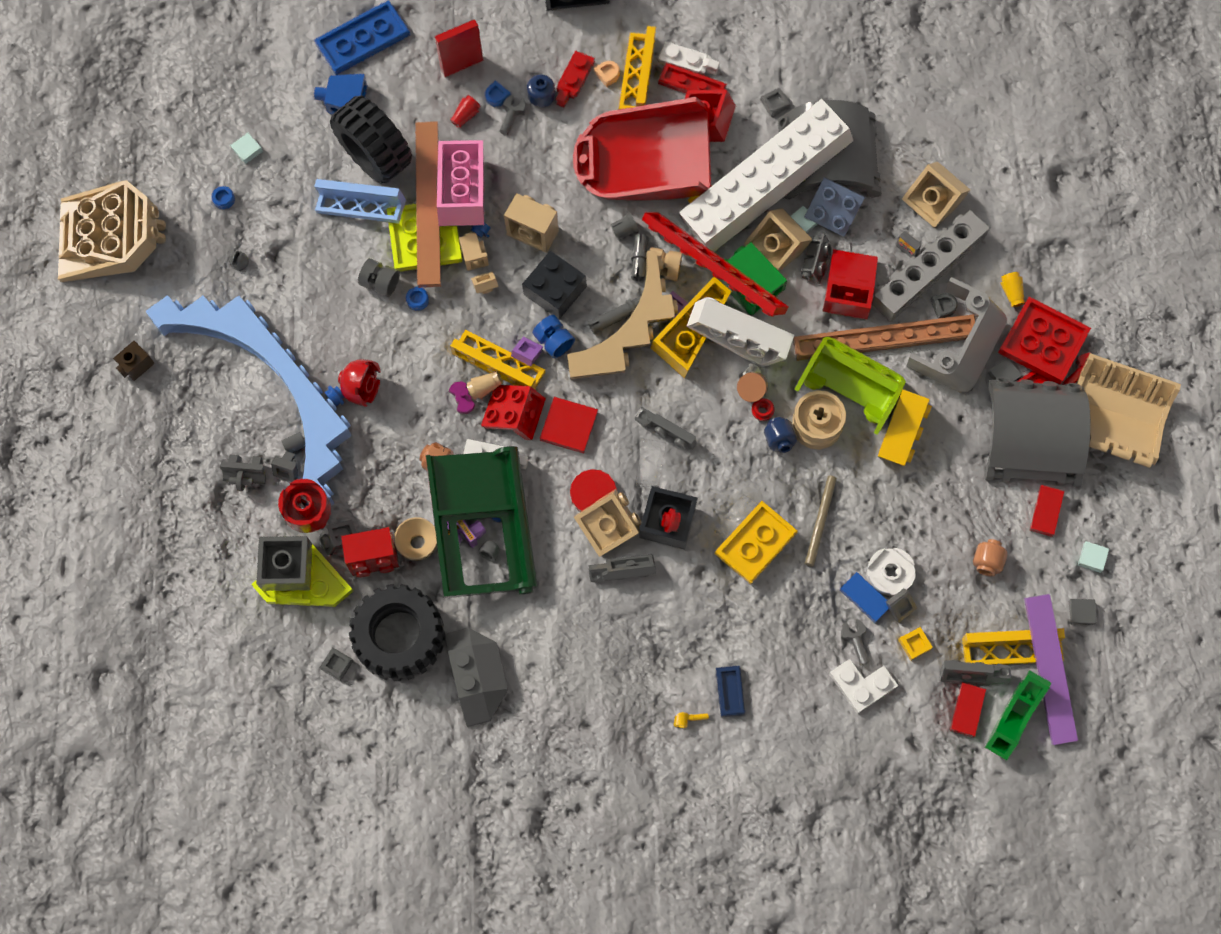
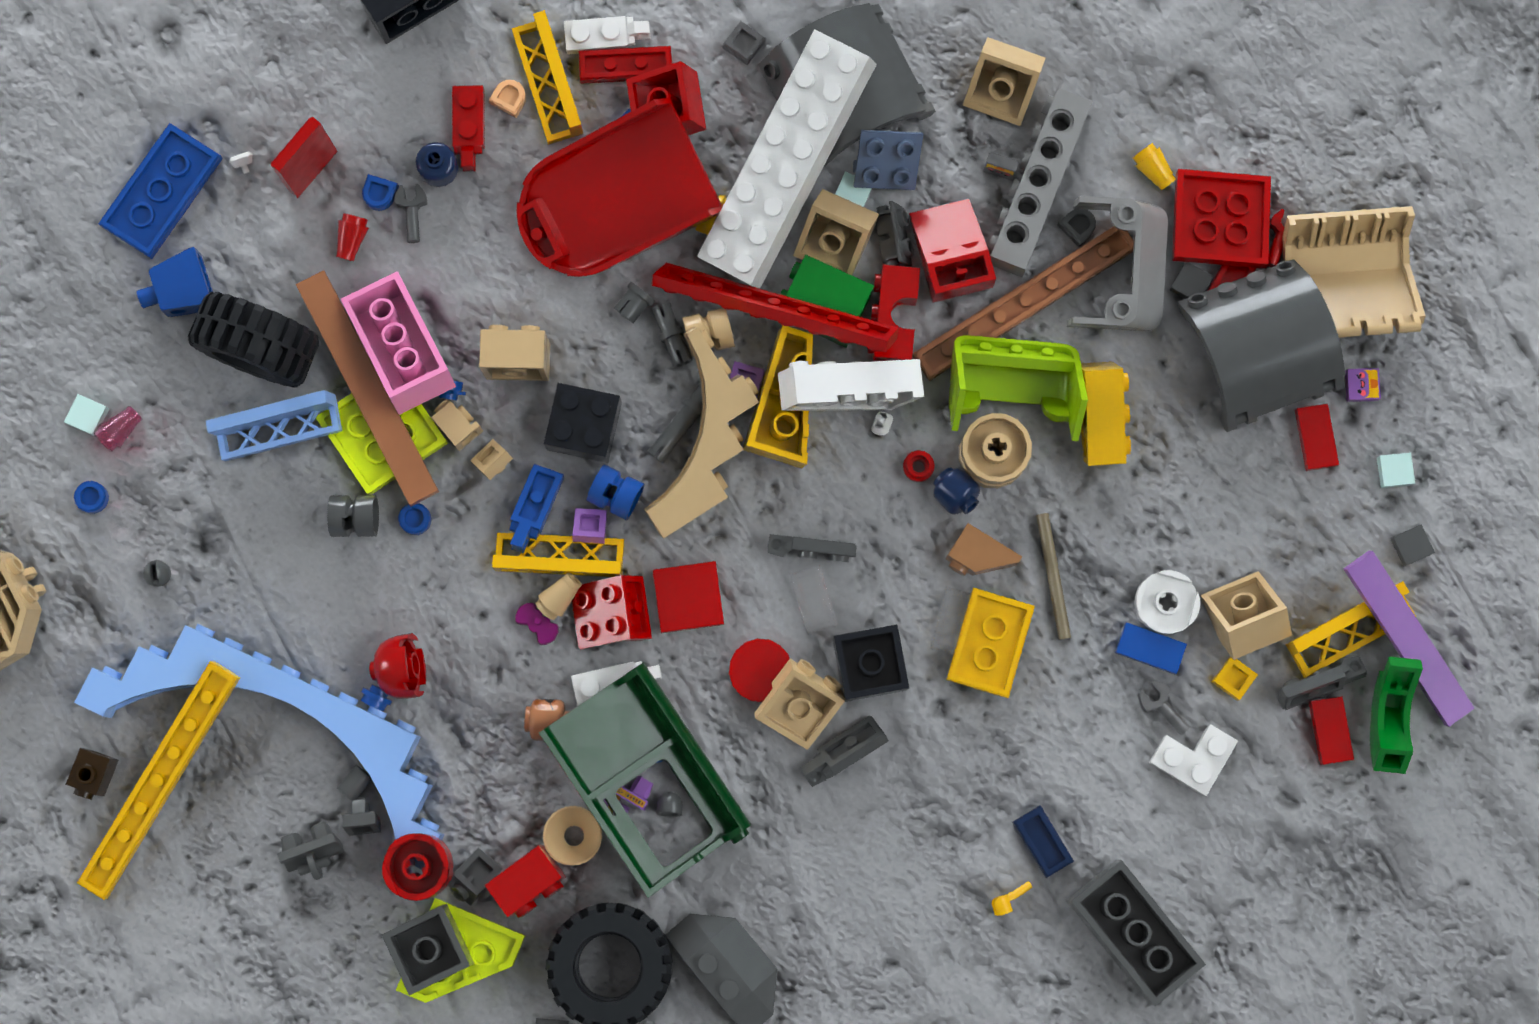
camera: 30 degrees left, 10 degrees up
(171, 383) = (158, 780): none -> yellow tile
(261, 163) = (118, 428): none -> clear pink cone
(421, 40) = (241, 160): none -> white rock
(496, 322) = (534, 506): none -> blue hinge
(671, 520) = (881, 672): red plate -> none
(752, 386) = (894, 444): nougat piece -> none
(764, 778) = (1136, 932): none -> dark grey brick
(777, 482) = (979, 553): none -> medium nougat slope
(801, 291) = (895, 287): none -> red arch
(901, 605) = (1198, 639): flat silver tile -> none
(943, 605) = (1247, 615): none -> tan slope
(990, 558) = (1277, 531): nougat head -> none
(1095, 490) = (1362, 385): none -> medium lavender tile

